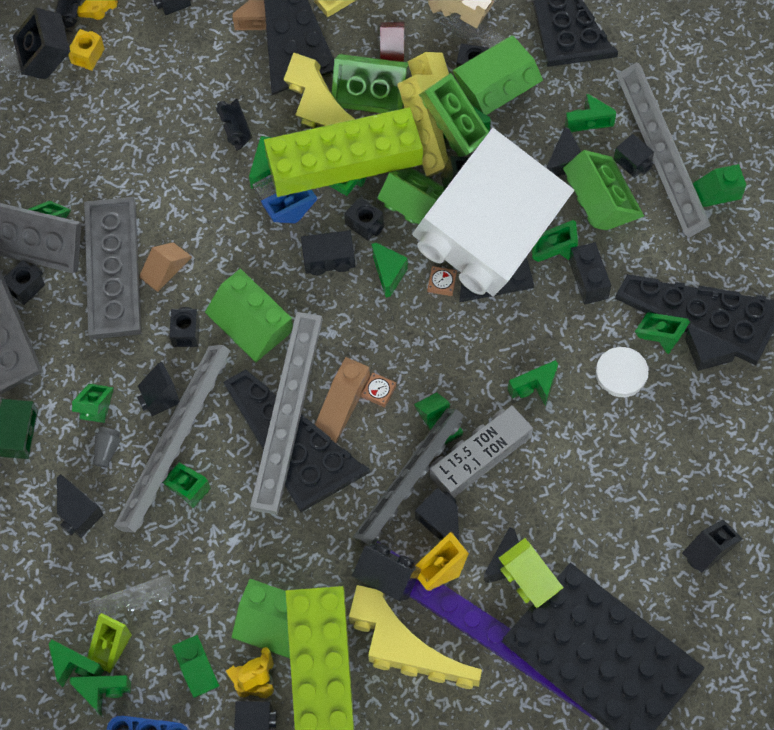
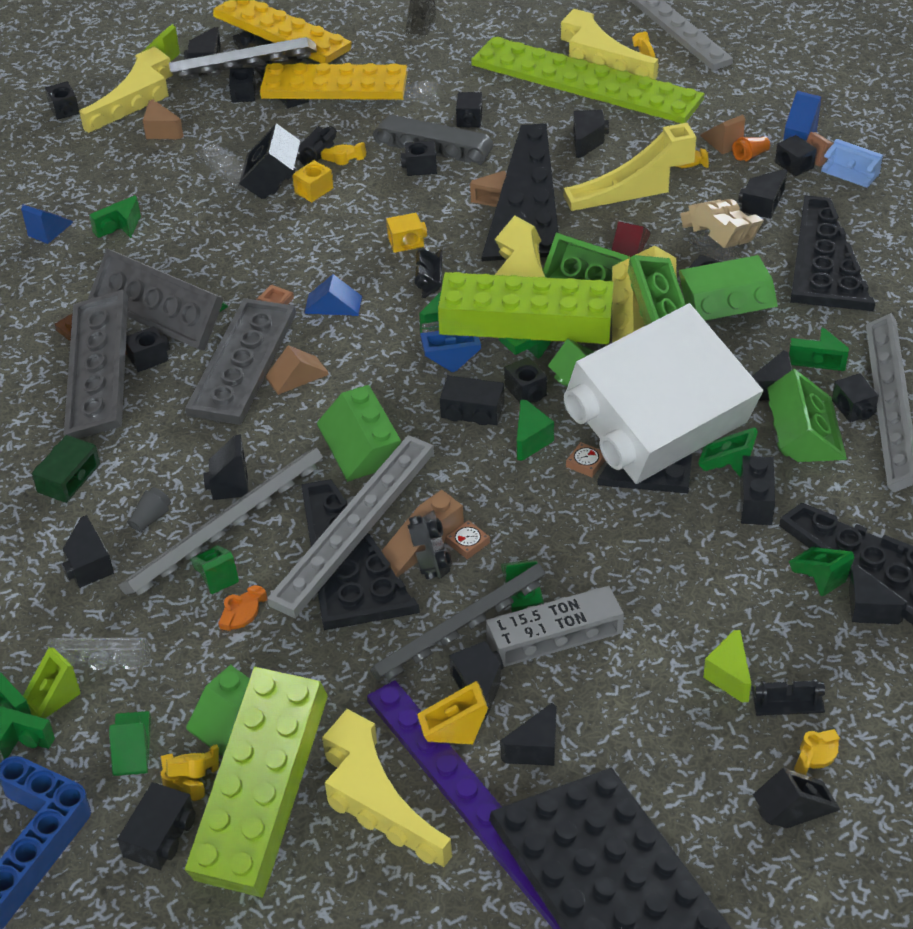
camera: 20 degrees right, 20 degrees down
(93, 402) = (156, 468): green slope -> none
(109, 189) = (276, 295): none -> nougat tile
(162, 177) = (333, 298): none -> blue slope
(184, 337) = (286, 427): black brick -> none
(195, 85) = (406, 232): none -> yellow brick
(226, 516) = (242, 609): none -> orange piece
(354, 403) = (435, 559): none -> black hinge
(386, 571) = (386, 705): black brick -> none
(530, 572) = (552, 753): lime brick -> none
(539, 379) = (652, 573): green slope -> none
(622, 371) = (757, 597): white tile -> none
(626, 446) = (728, 667): none -> lime slope
(676, 457) = (785, 699): none -> black hinge
(711, 497) = (817, 750): none -> yellow piece

